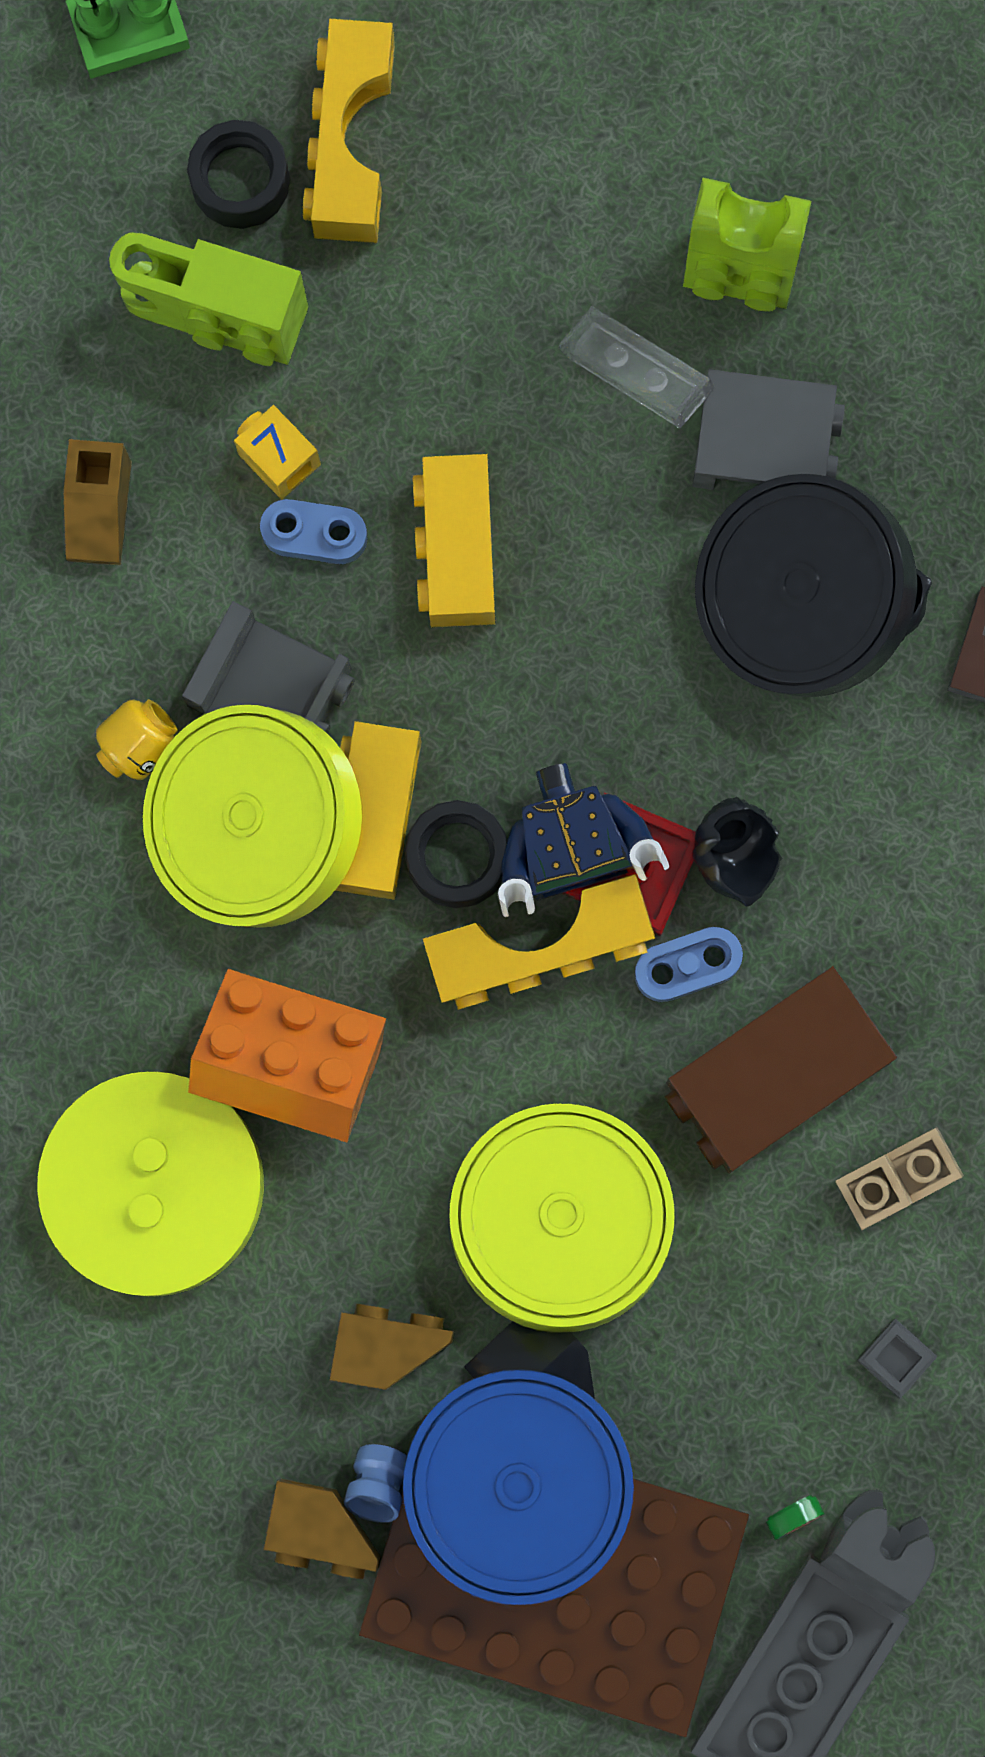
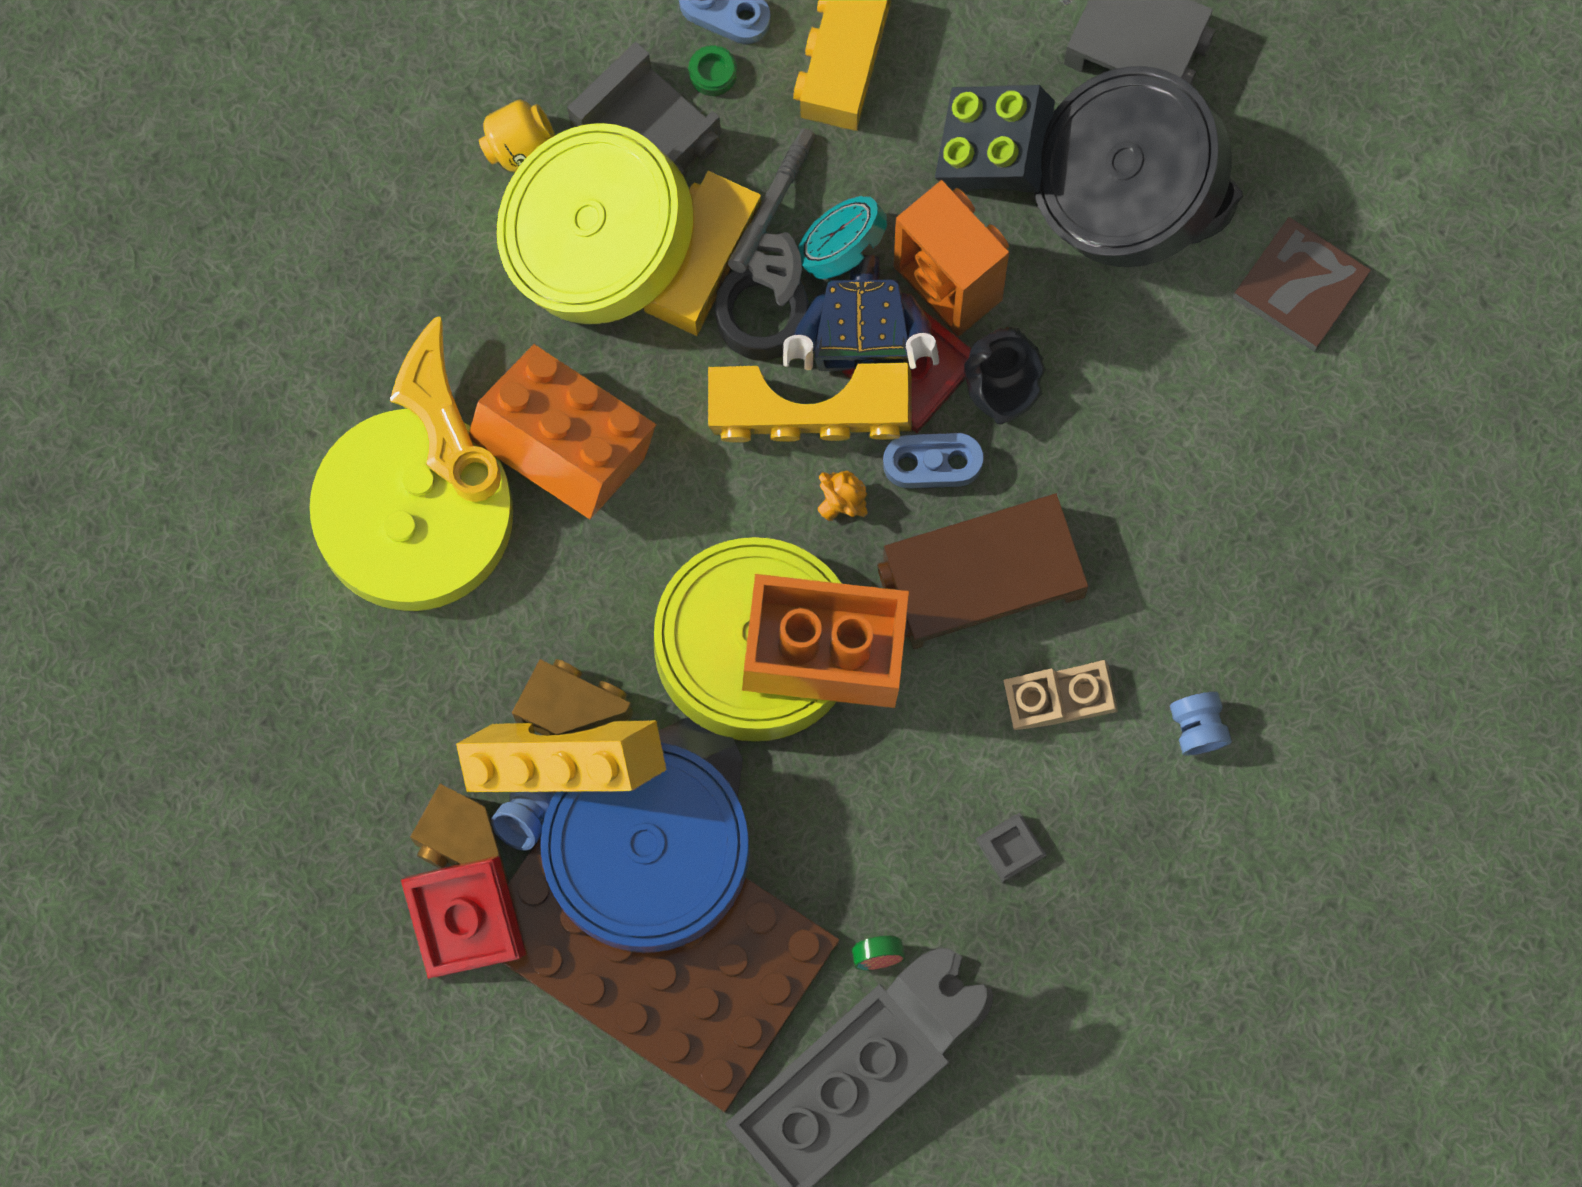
camera: 15 degrees right, 5 degrees down
(128, 1055) = (426, 392): none -> yellow piece
(322, 603) = (712, 70): none -> green tile
(347, 1617) = (463, 917): none -> red tile
(426, 778) = (755, 237): none -> dark grey piece
(450, 1417) = (597, 759): none -> yellow arch
(518, 751) = (840, 235): none -> teal tile
(605, 1031) = (842, 494): none -> light orange plant
(644, 1208) = (825, 640): none -> orange brick
(646, 743) = (951, 256): none -> orange brick
(648, 594) = (994, 138): none -> black brick

